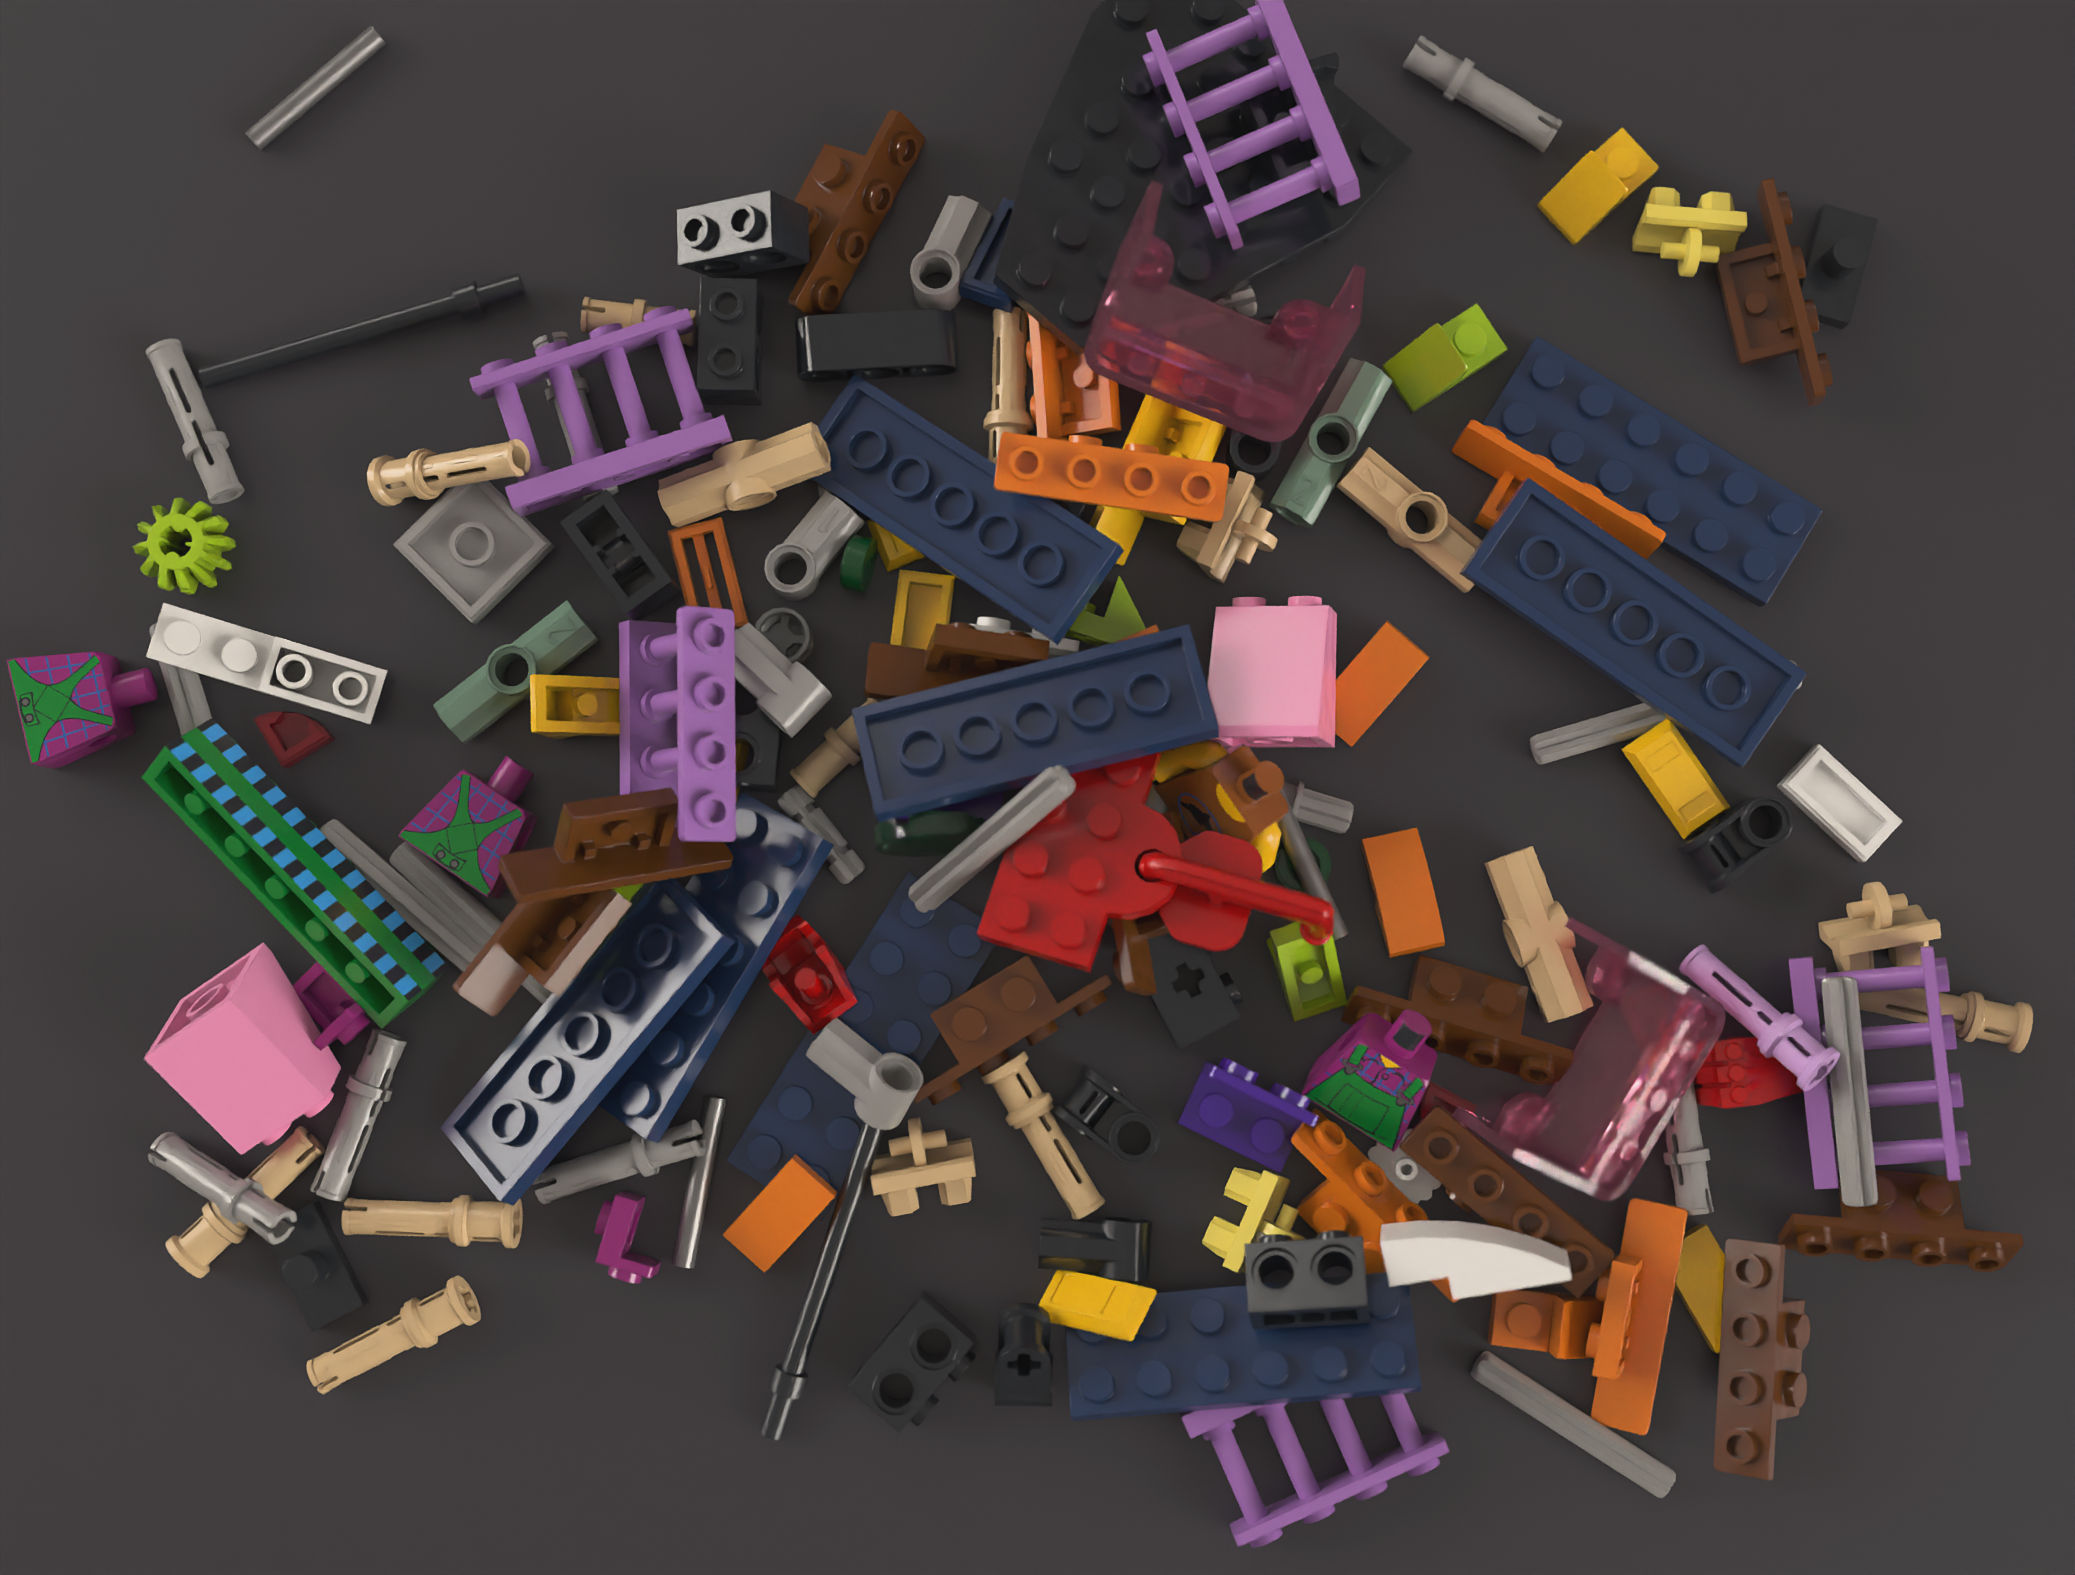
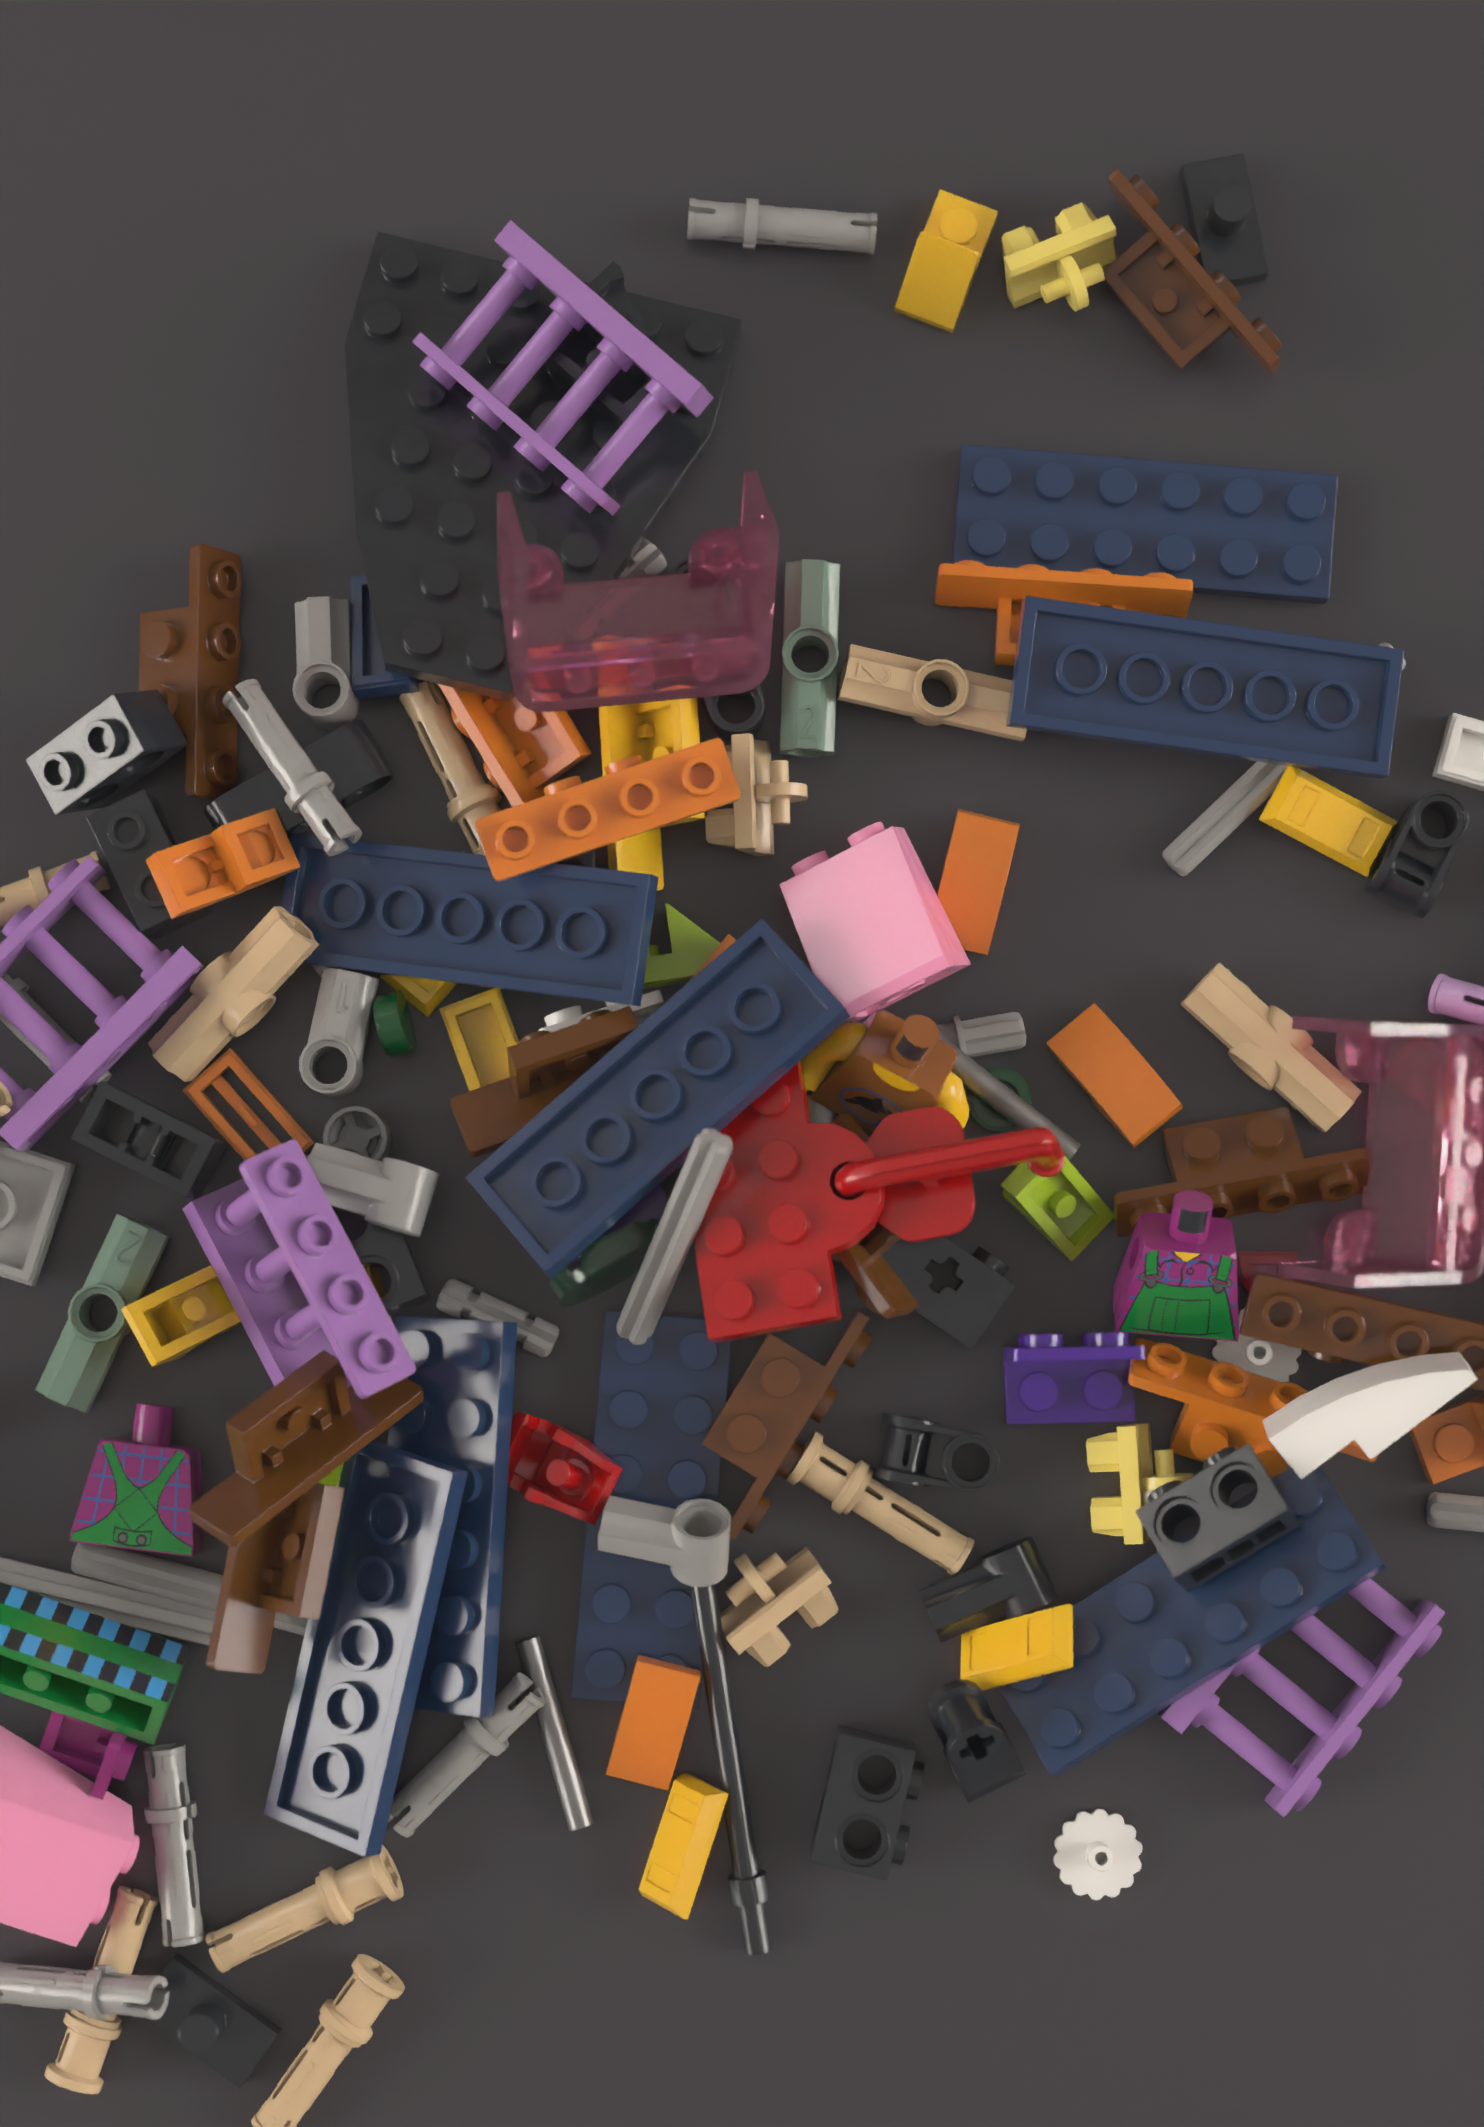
camera: 25 degrees left, 0 degrees up
(618, 1227) = (496, 1820): magenta bracket -> none
(754, 1321) = (682, 1844): none -> yellow tile
(788, 368) = (222, 863): none -> orange slope
(830, 756) = (467, 1233): tan pin -> none
(883, 341) = (306, 788): none -> light grey pin
(1076, 1498) = (1097, 1854): none -> white piece
(1444, 357) = (879, 513): lime slope -> none

